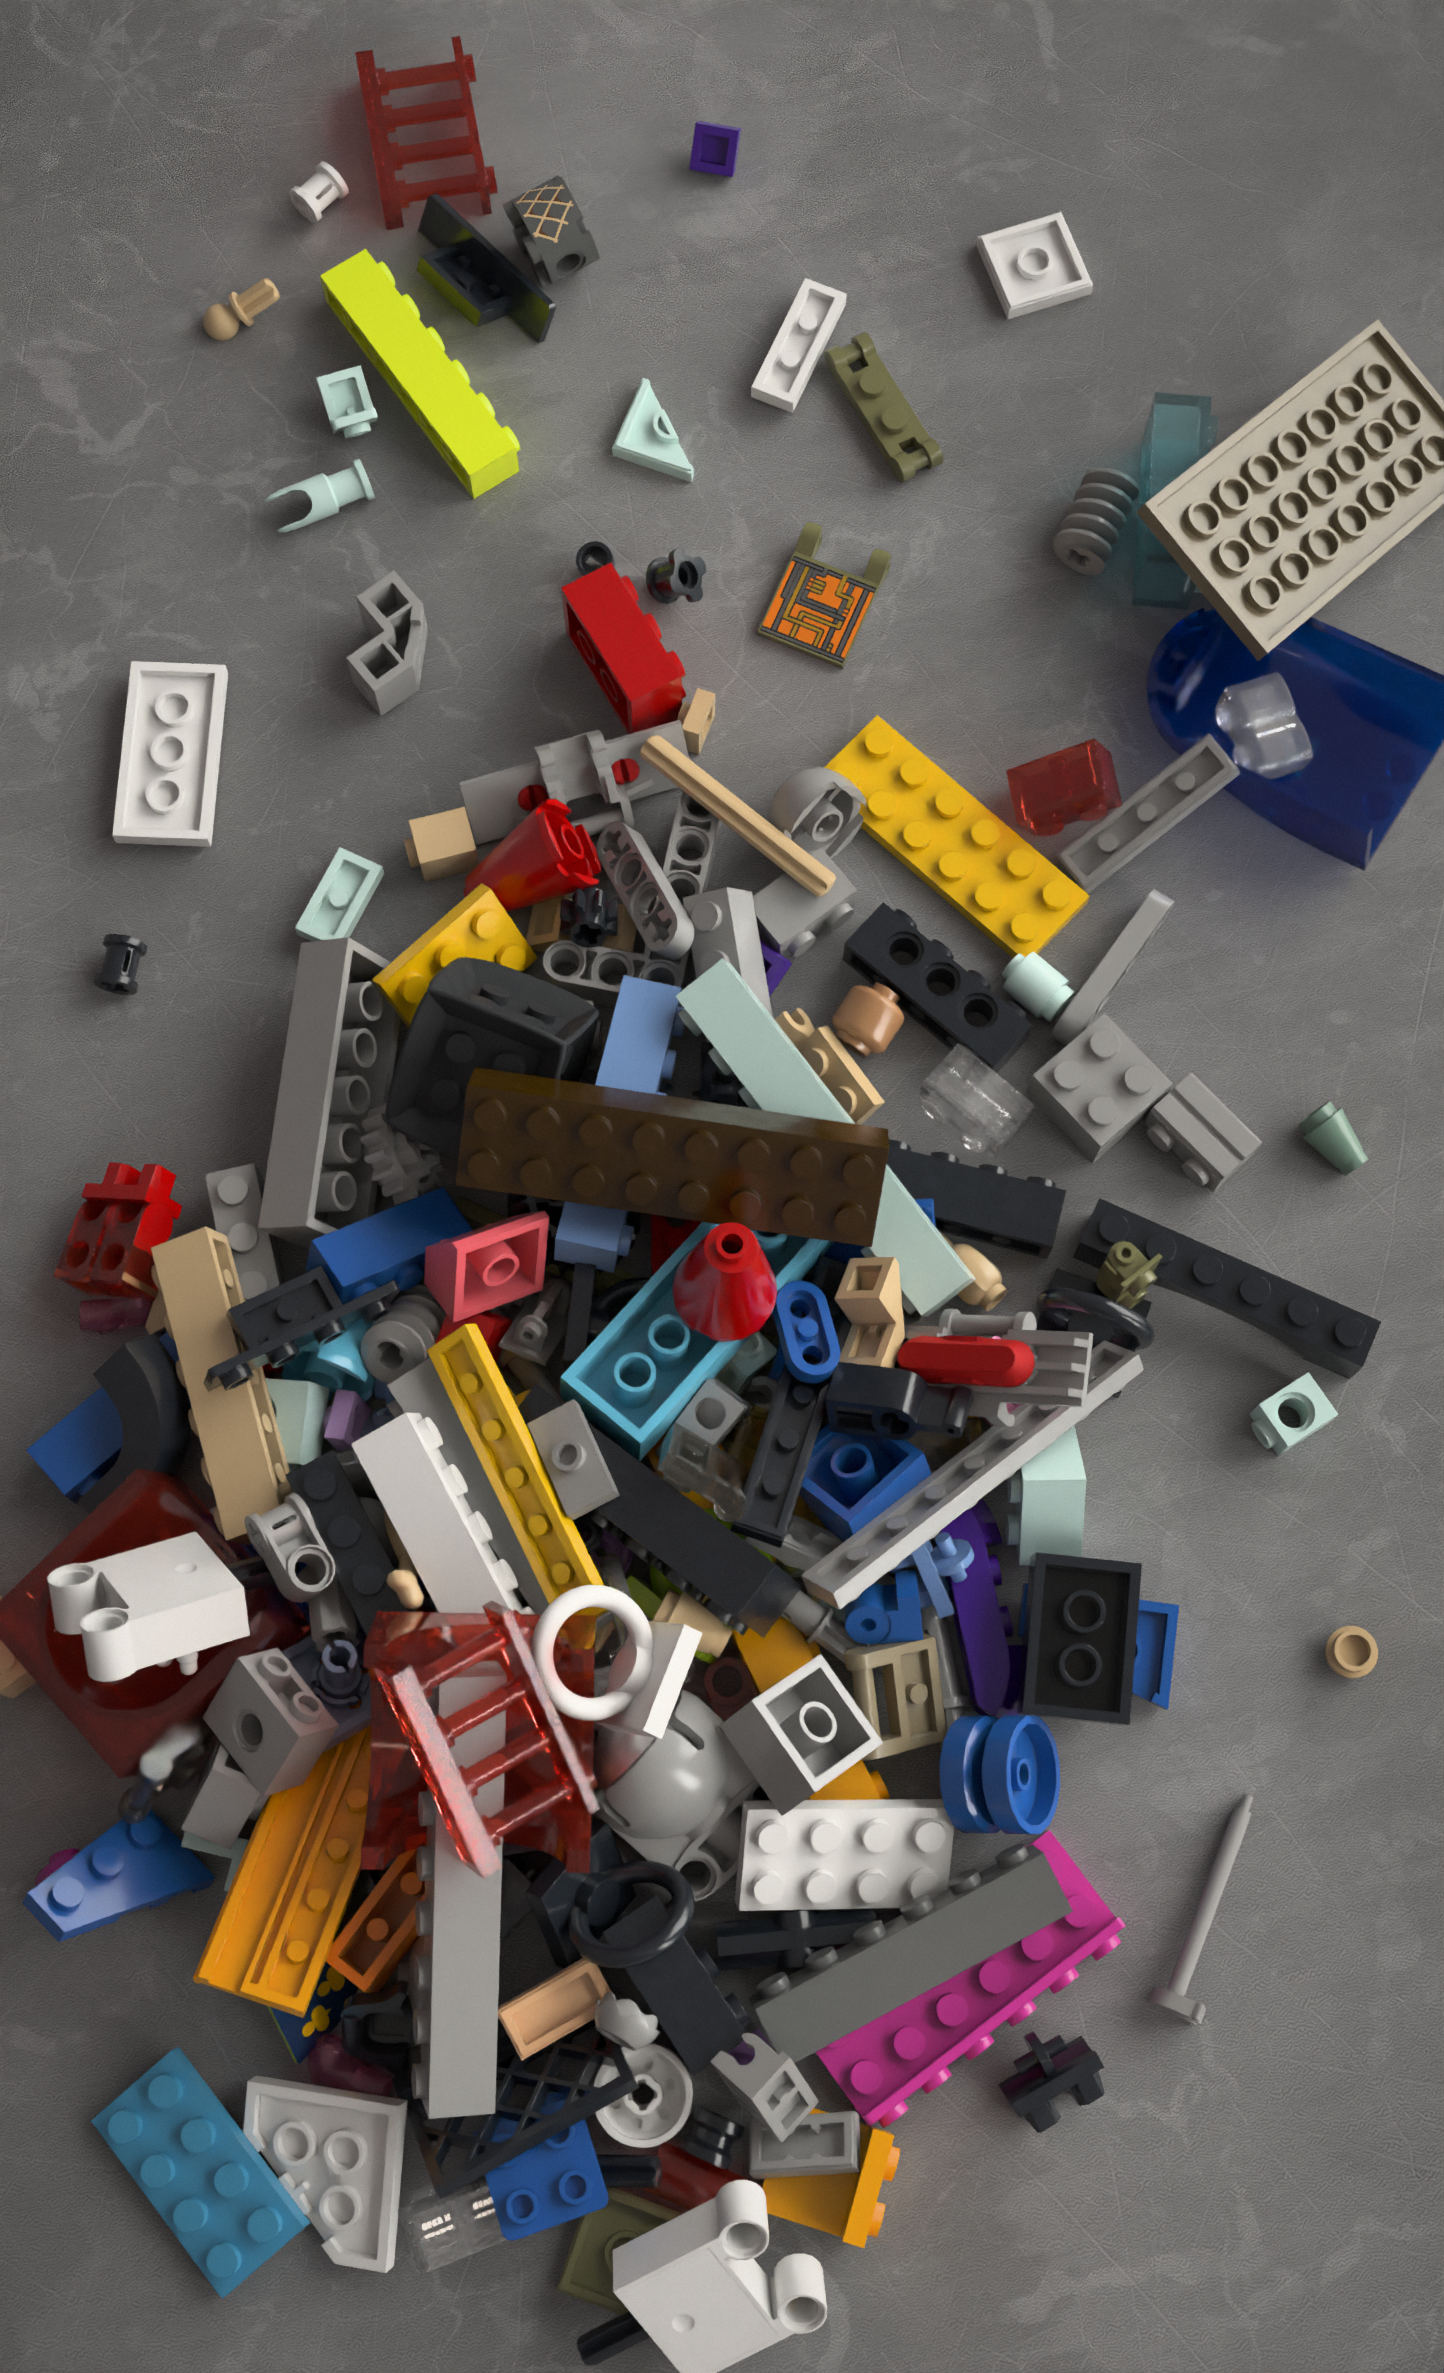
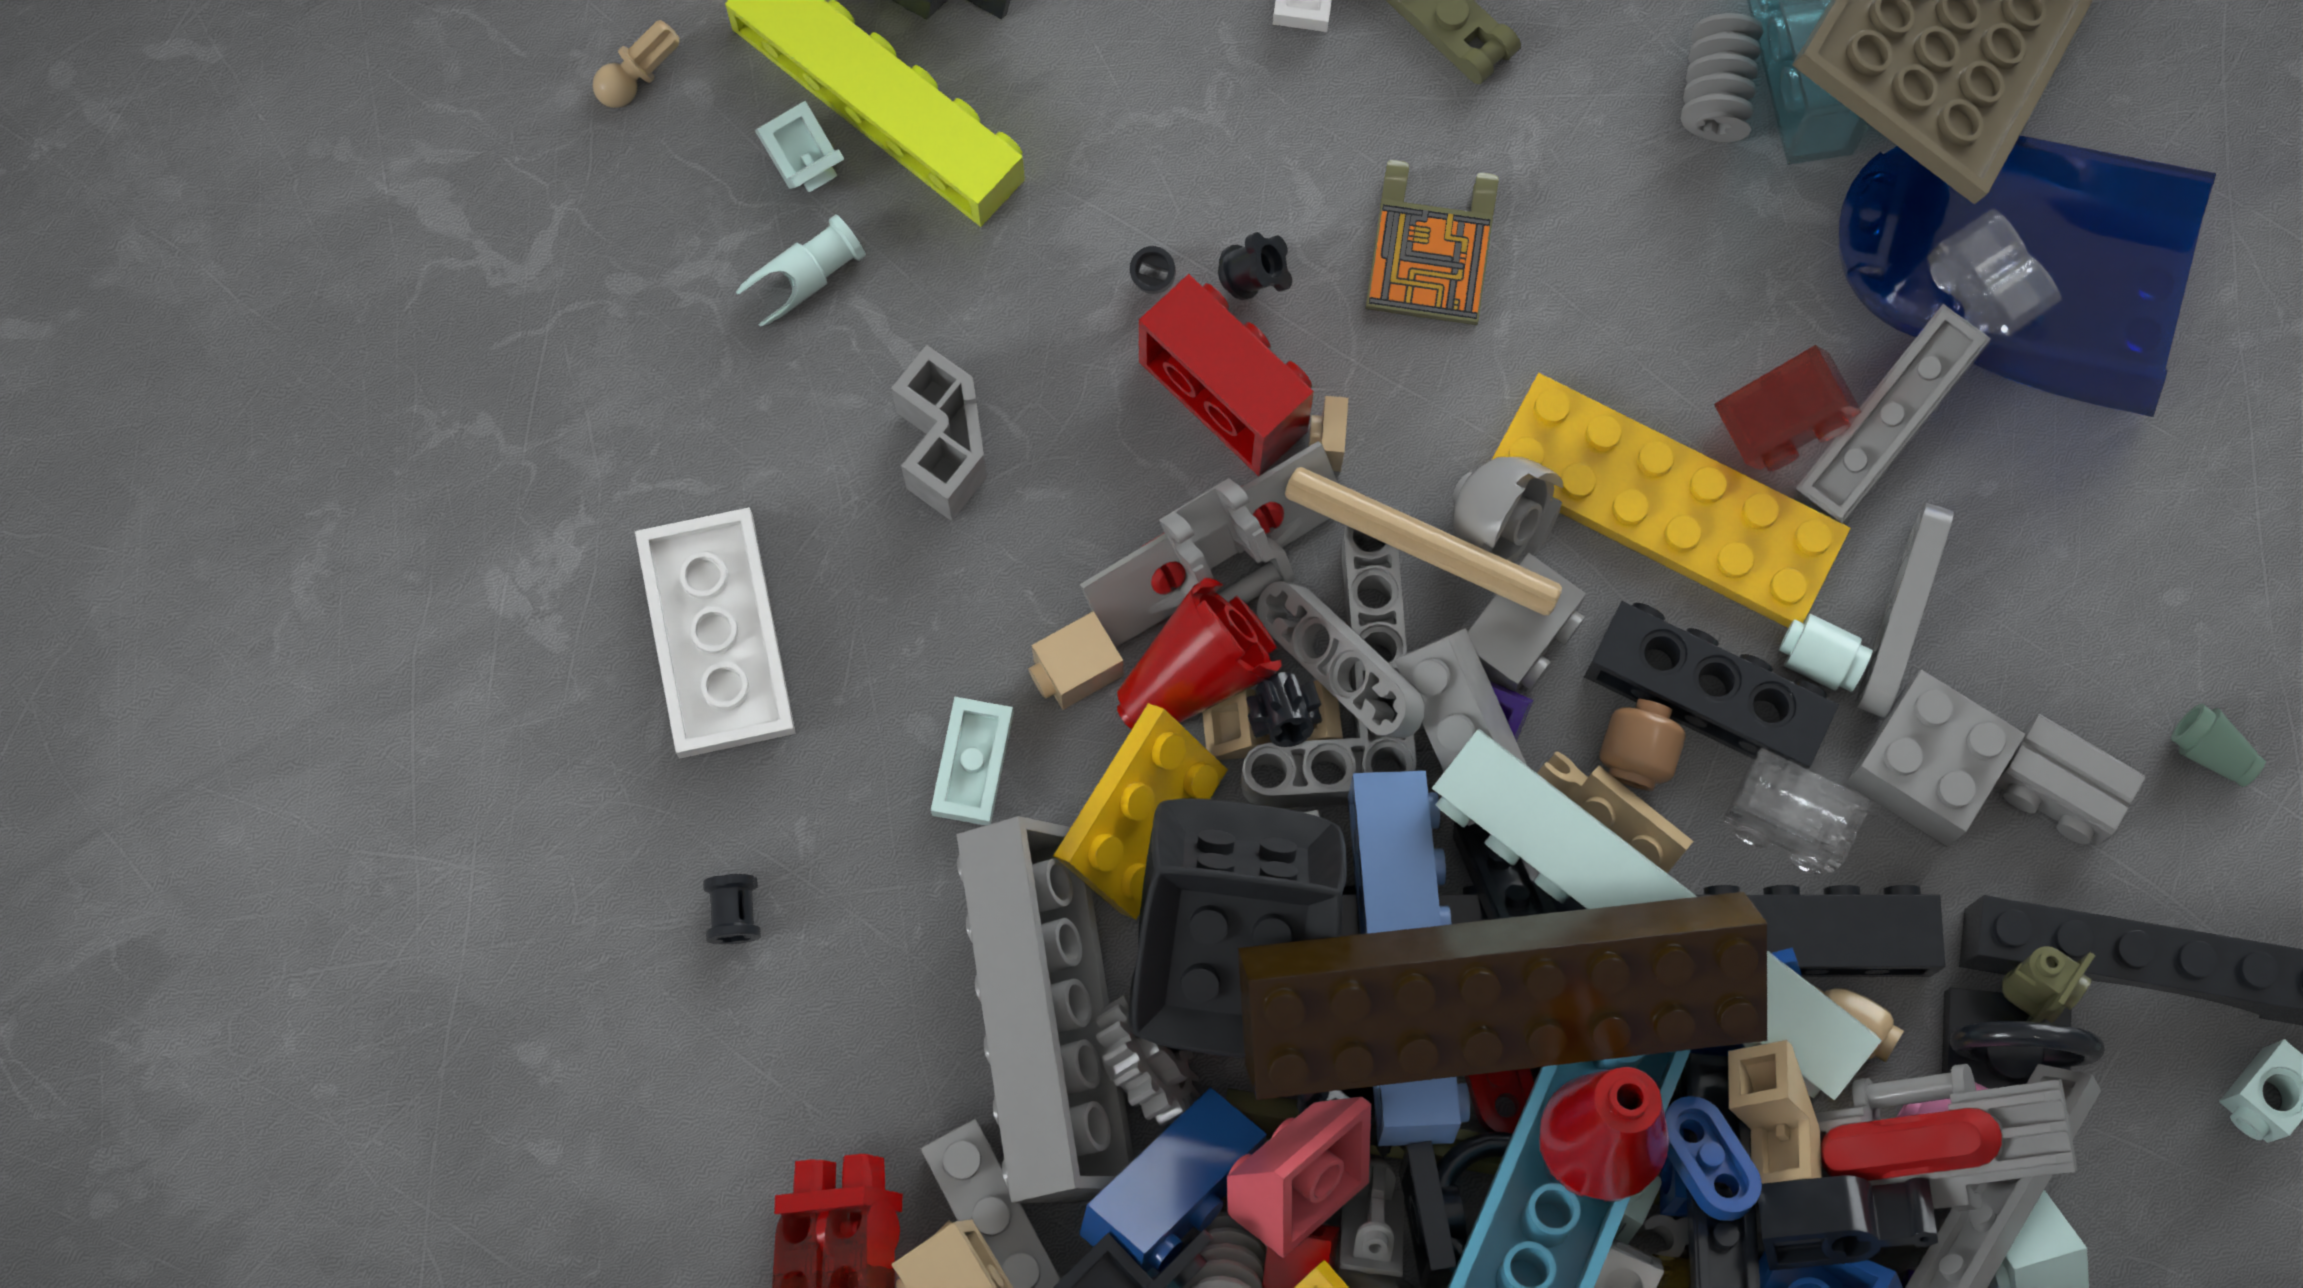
camera: 15 degrees left, 0 degrees up
(650, 438) = (1169, 103): light aqua tile -> none

